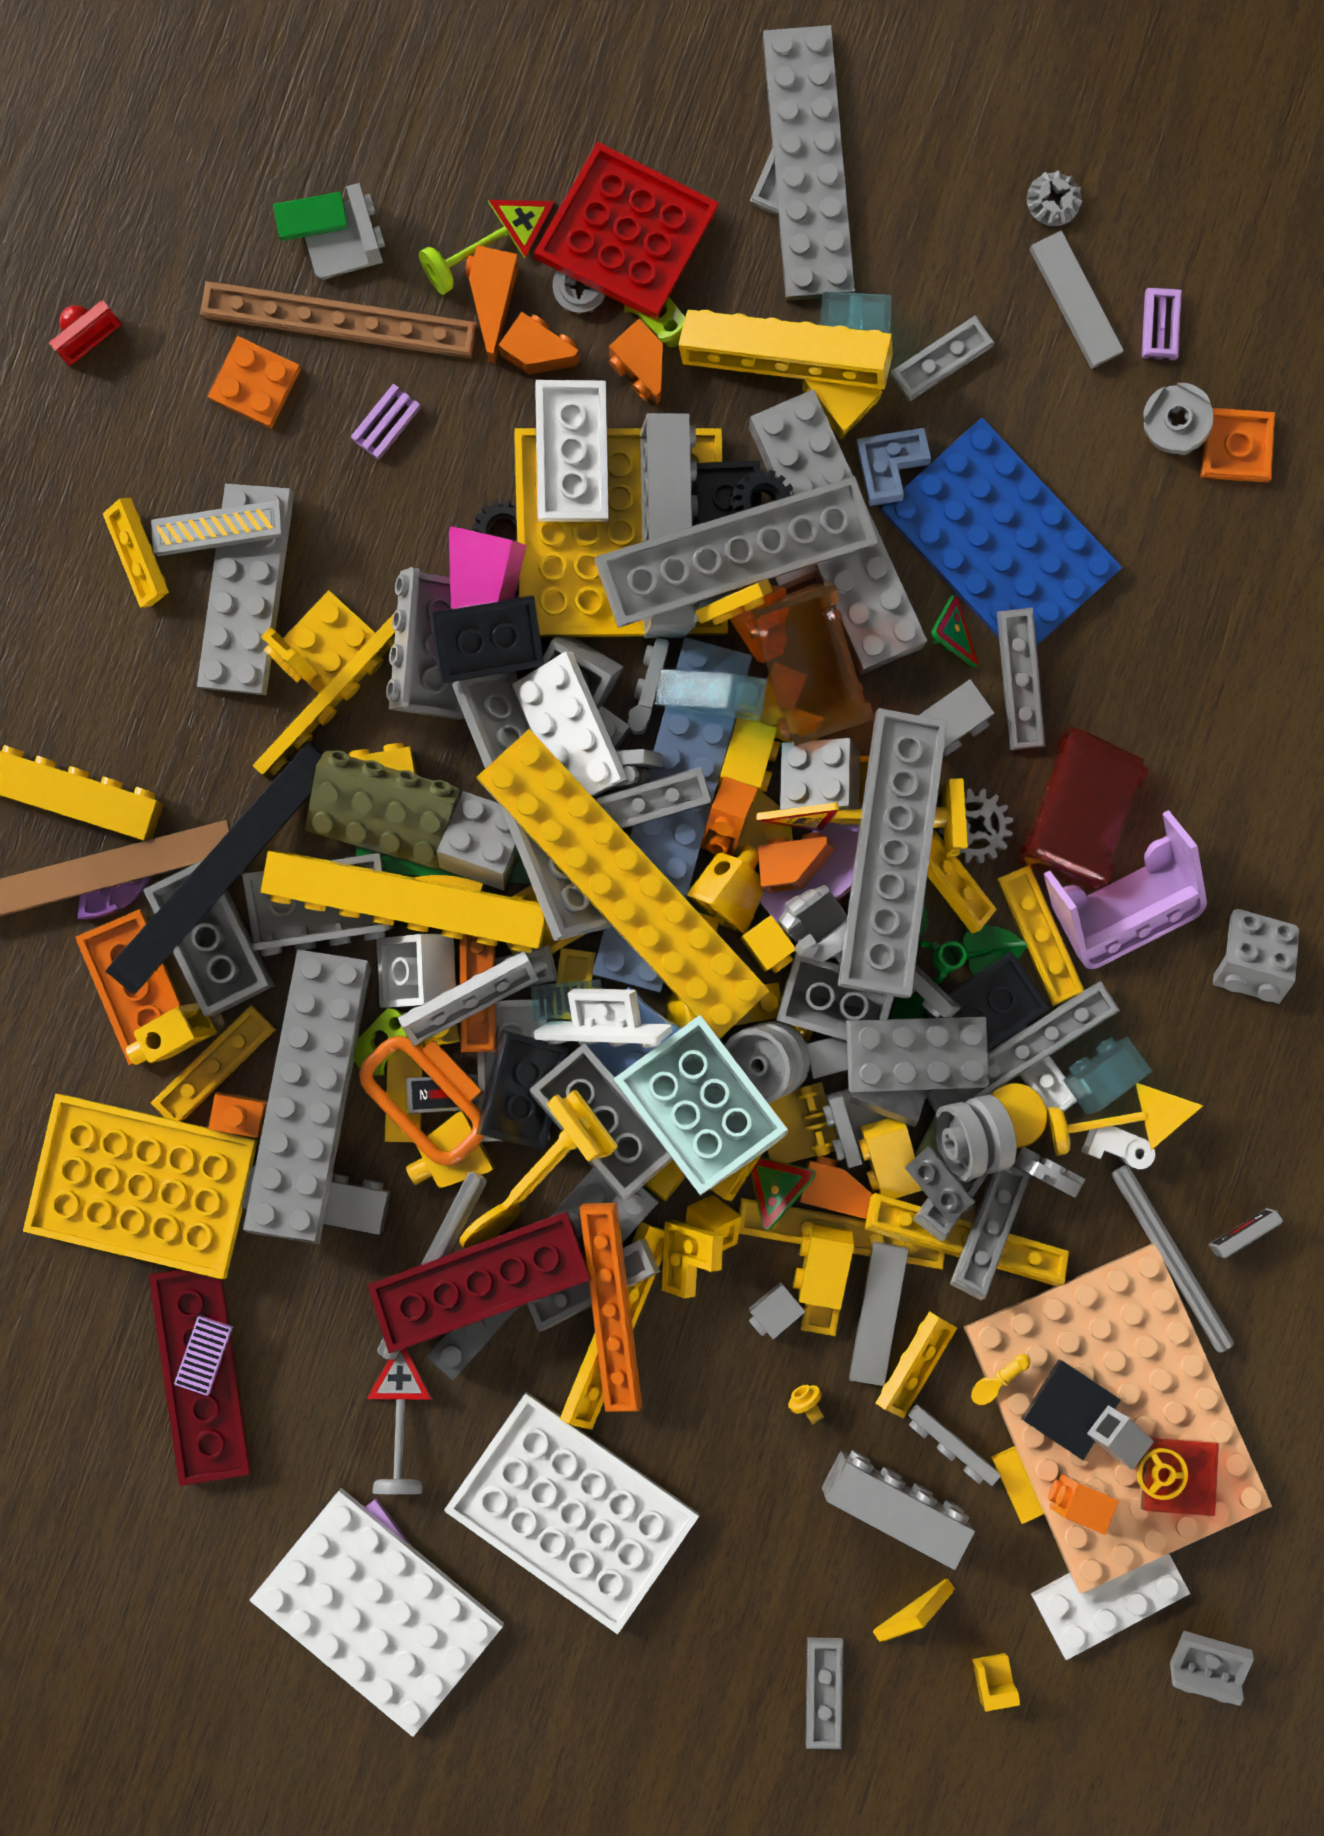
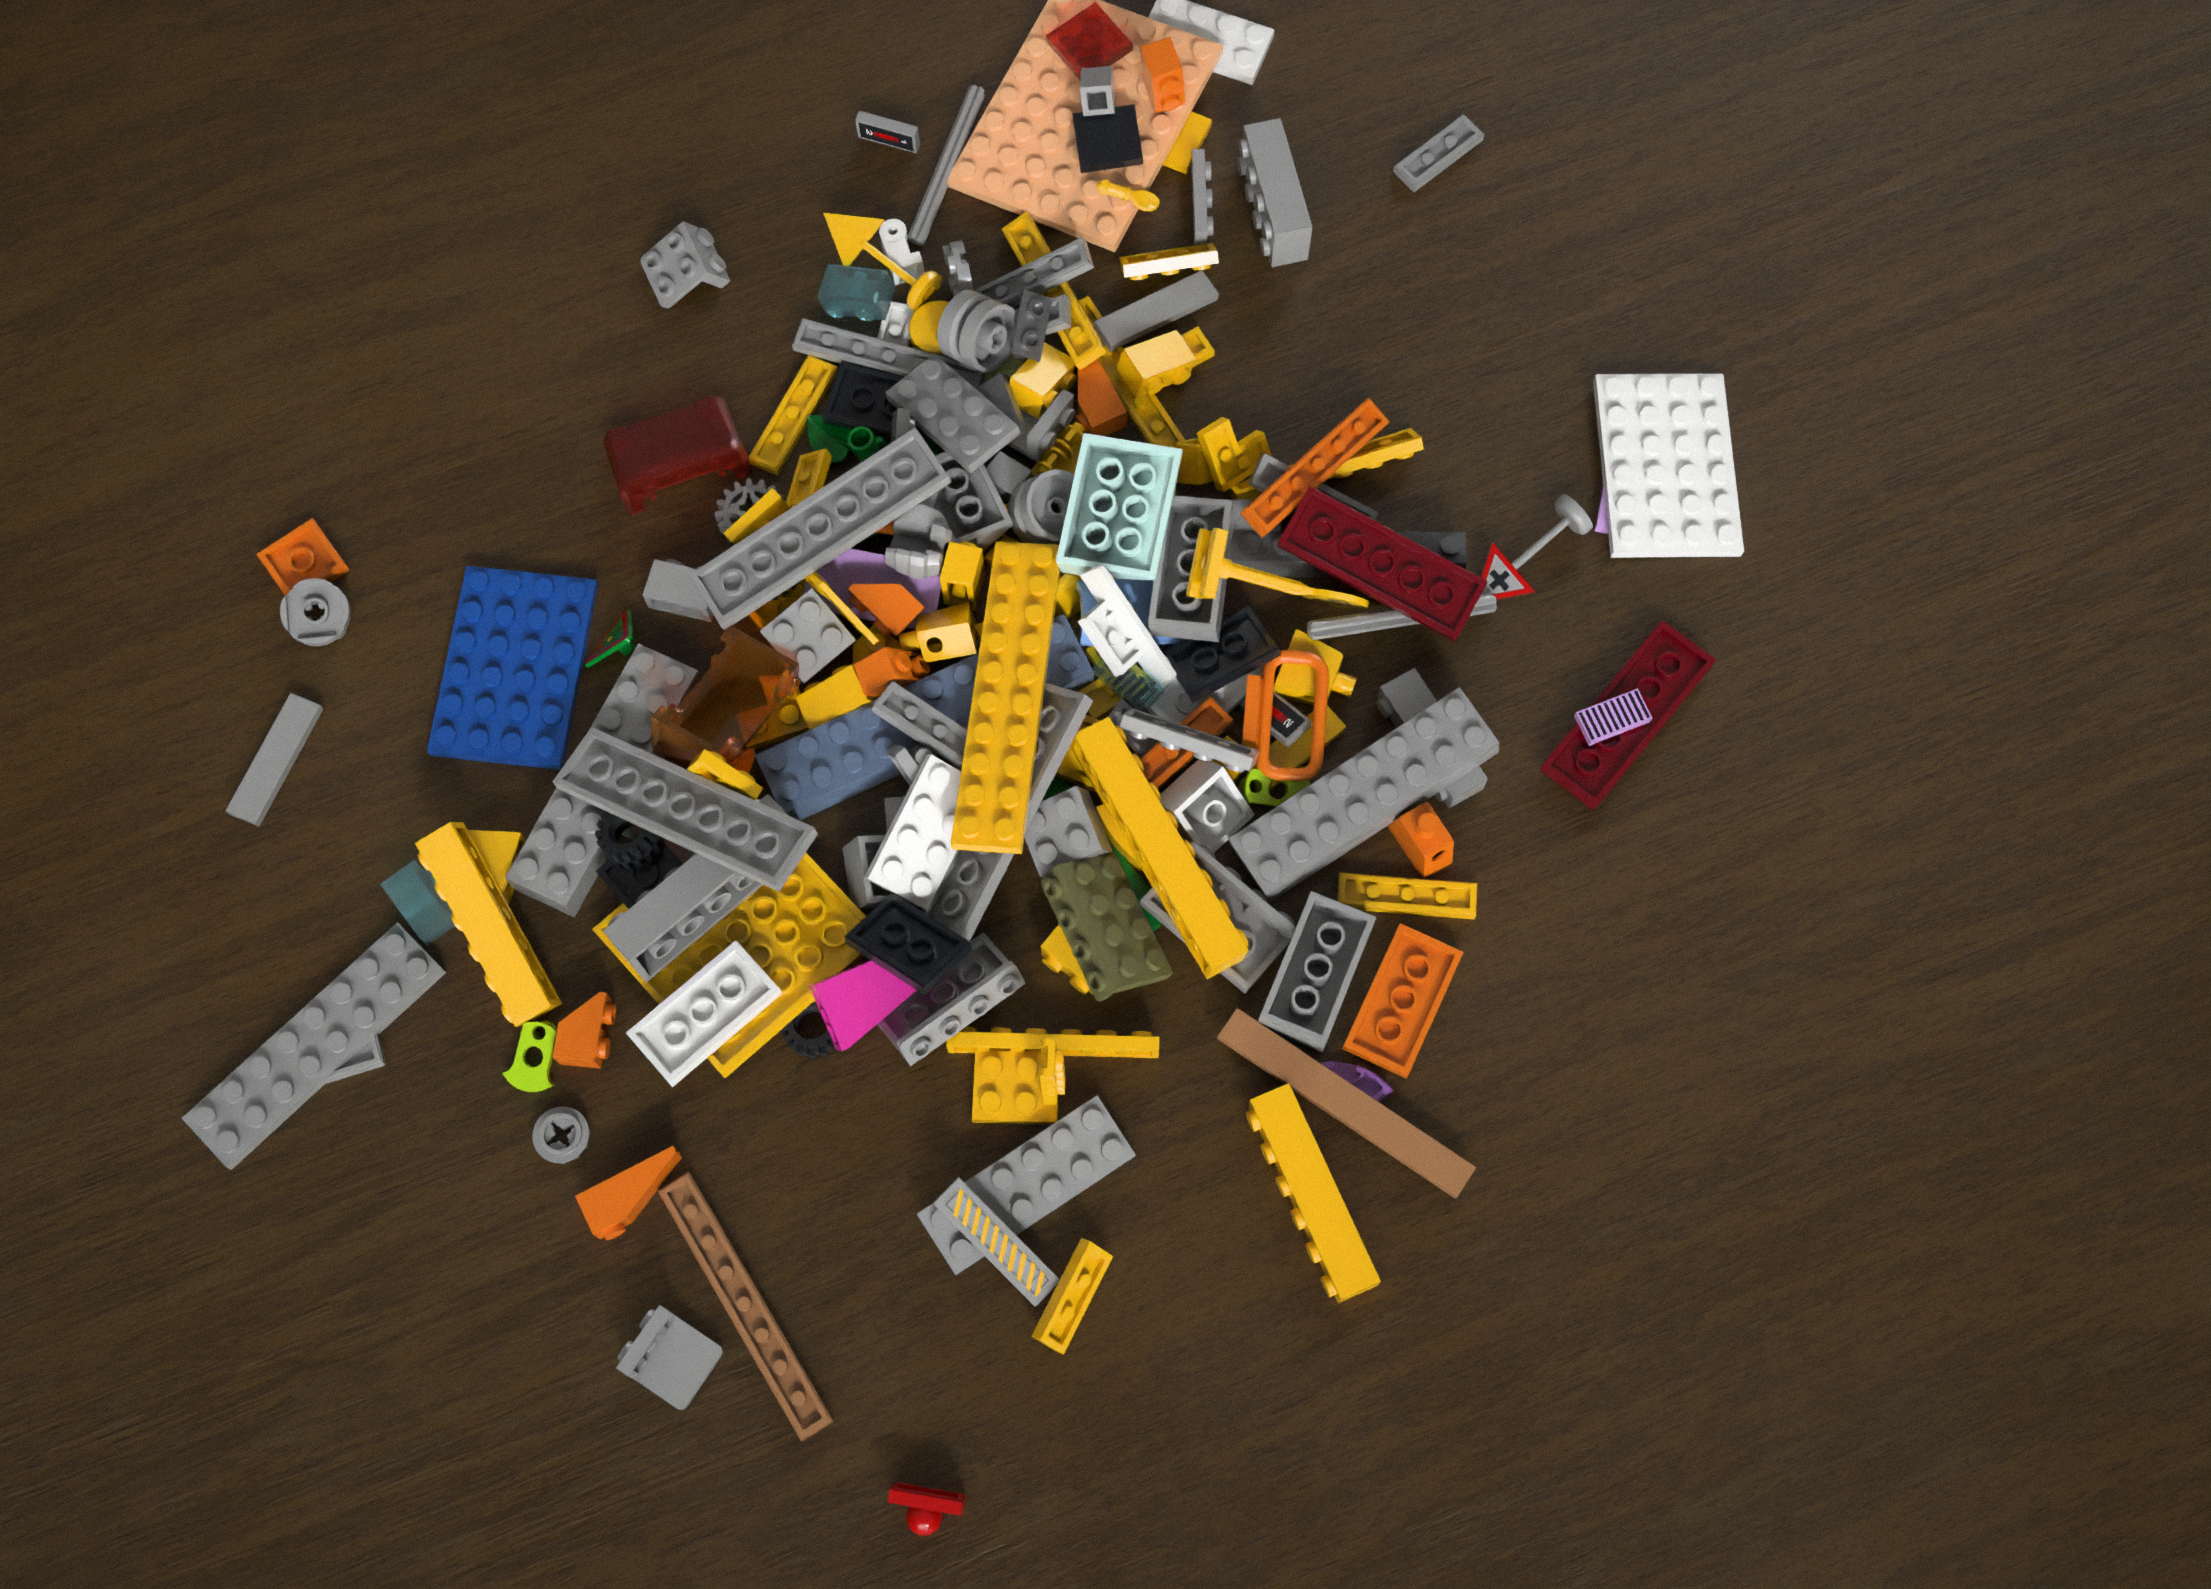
camera: 125 degrees left, 15 degrees down
(140, 1186) = (1541, 866): yellow plate -> none
(170, 1034) = (1412, 929): yellow torso -> none
(216, 872) = (1257, 993): black beam -> none
(254, 382) = (853, 1327): orange plate -> none
(310, 216) = (675, 1396): green tile -> none
(374, 415) = (768, 1194): lavender tile -> none
(520, 220) = (544, 1225): lime piece -> none
(536, 348) = (641, 1125): orange slope -> none
(571, 1512) = (1478, 396): white plate -> none
(626, 230) = (485, 1132): red plate -> none
(647, 688) = (847, 816): light grey hinge -> none
(712, 693) = (808, 749): clear light blue slope -> none
(775, 1311) = (1216, 374): light grey brick -> none
(778, 1187) = (1131, 427): piece -> none
(805, 1400) = (1259, 307): yellow plate -> none
(883, 458) = (521, 793): sand blue plate -> none
(916, 1614) = (1333, 135): yellow tile -> none
(942, 358) = (396, 816): light grey tile -> none
(995, 1682) = (1332, 57): yellow panel -> none
(1021, 678) = (611, 566): light grey tile -> none
(1048, 212) = (202, 853): light grey gear -> none
(1136, 906) = (711, 366): lavender windscreen -> none
(1159, 352) = (250, 689): lavender tile -> none
(1159, 1465) = (1092, 41): yellow piece -> none

